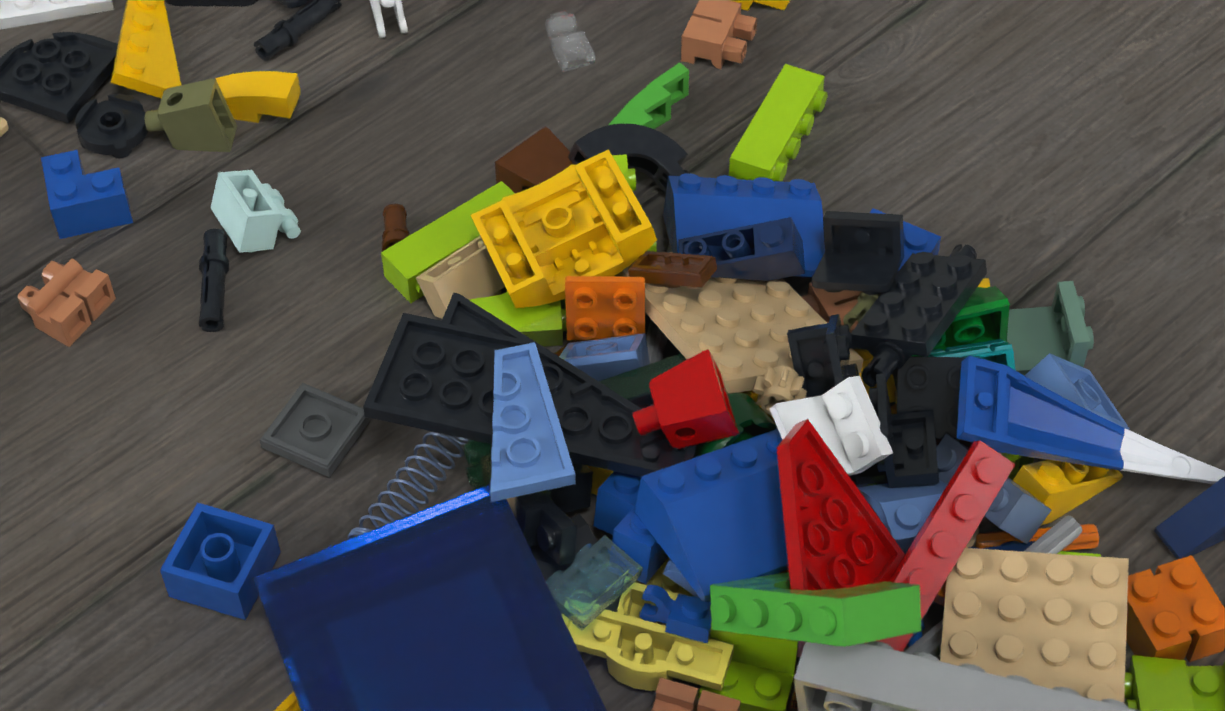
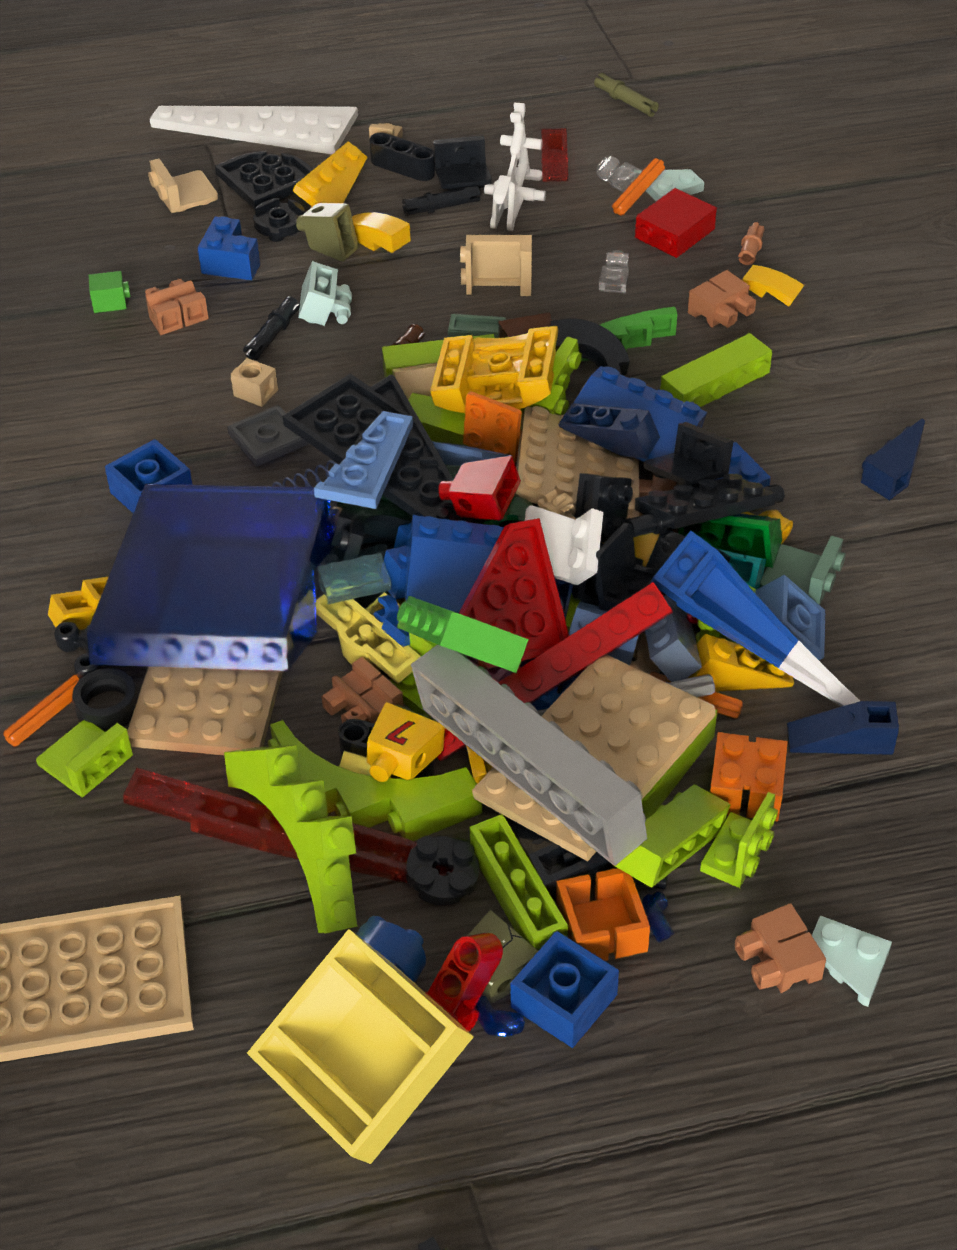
camera: 30 degrees right, 5 degrees down
(247, 364) = (254, 382): none -> tan brick
(440, 82) = (497, 262): none -> tan panel
(459, 177) = (473, 325): none -> sand green tile
(674, 269) = (550, 417): reddish brown plate -> none
(1041, 158) = (892, 466): none -> dark blue slope

